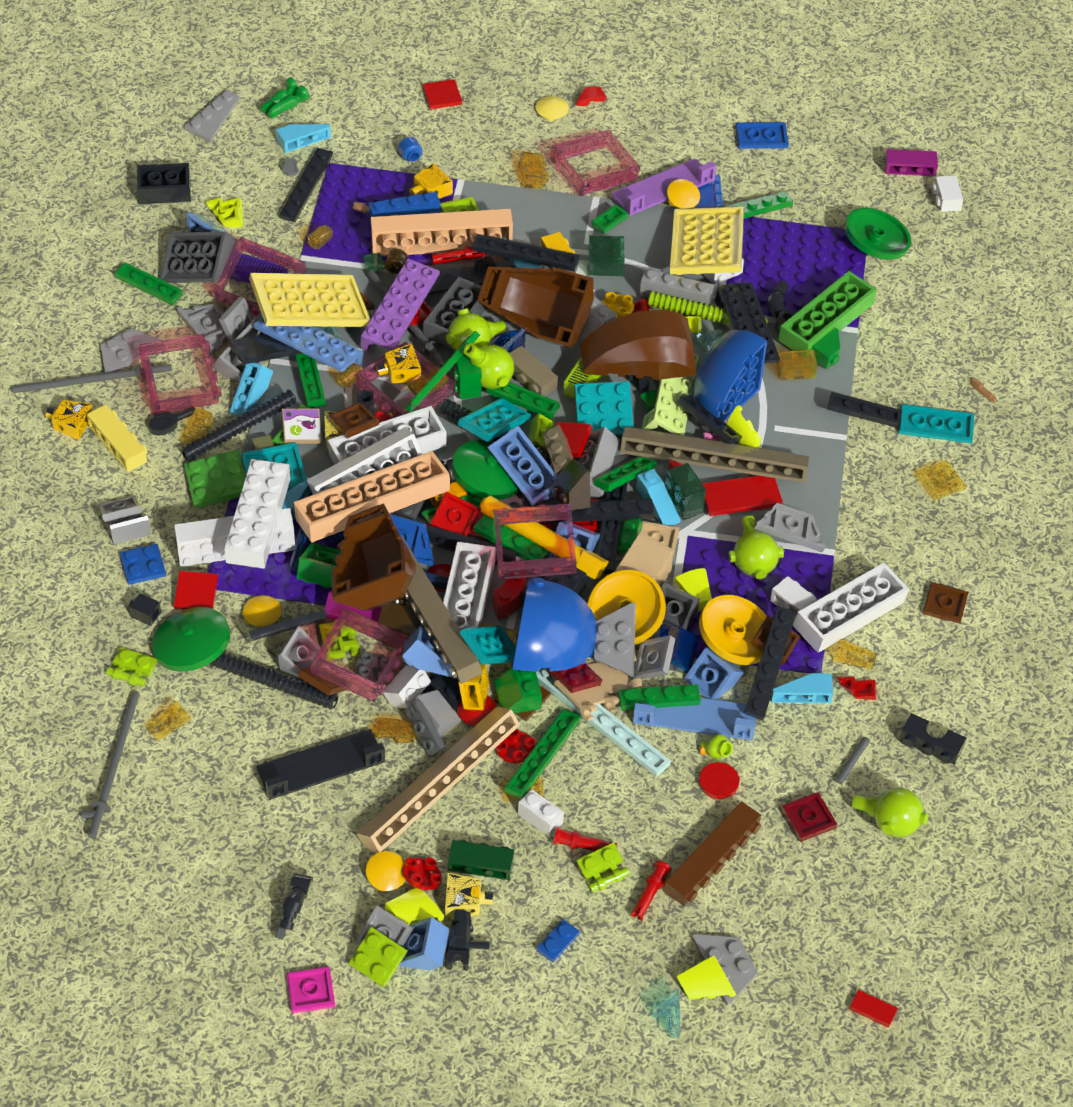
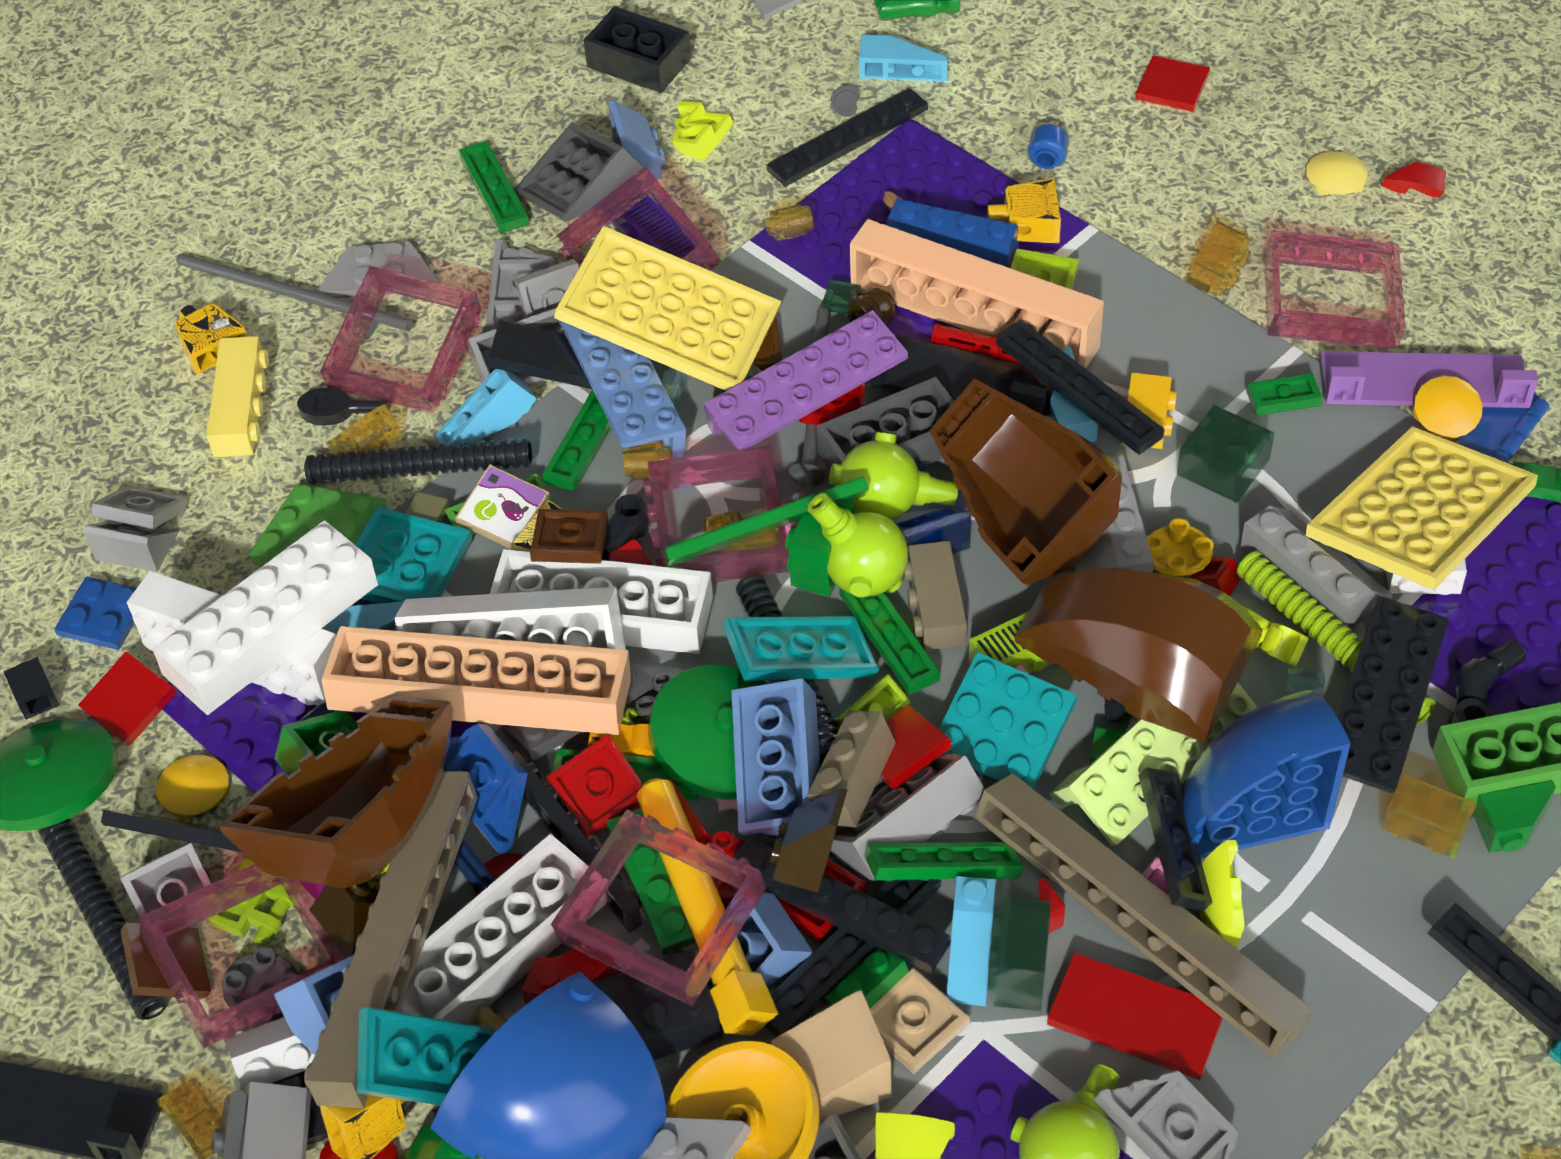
camera: 40 degrees right, 0 degrees up
(400, 365) = (720, 479): yellow torso -> none

